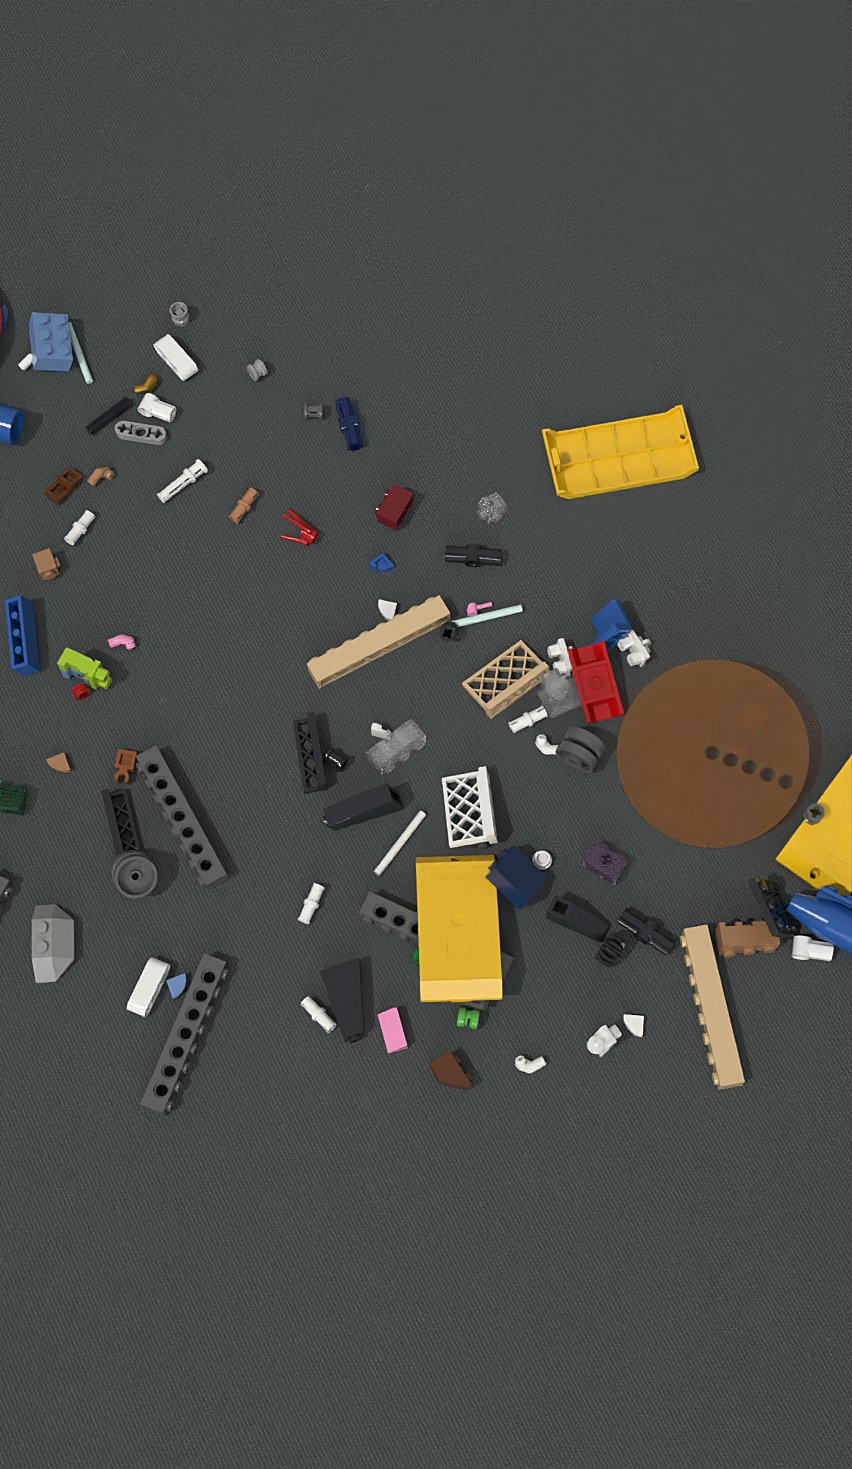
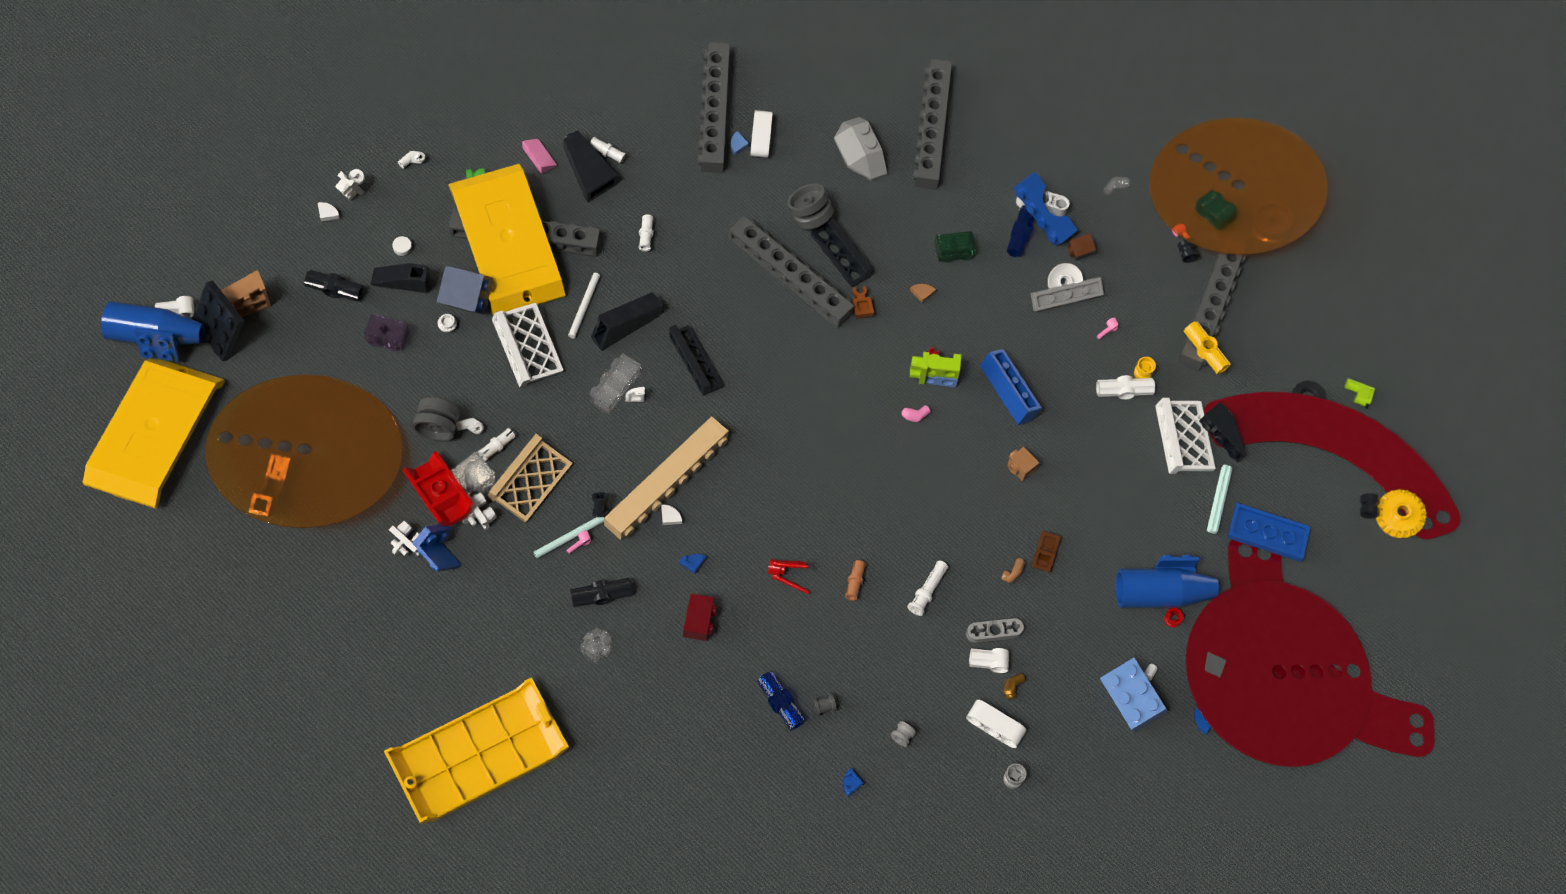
camera: 150 degrees right, 5 degrees down
(79, 354) = (1102, 703): light aqua bar -> none
(79, 527) = (1008, 511): white pin -> none
(108, 416) = (1036, 639): black axle -> none
(315, 349) = (851, 782): none -> blue tile
(335, 759) = (669, 358): black bush -> none
(449, 1073) = (479, 133): reddish brown slope -> none
(565, 961) = (402, 246): none -> white tile
(611, 949) = (362, 257): black gear -> none
(712, 1007) = (259, 239): tan brick -> none
(819, 814) = (195, 409): dark grey bush -> none

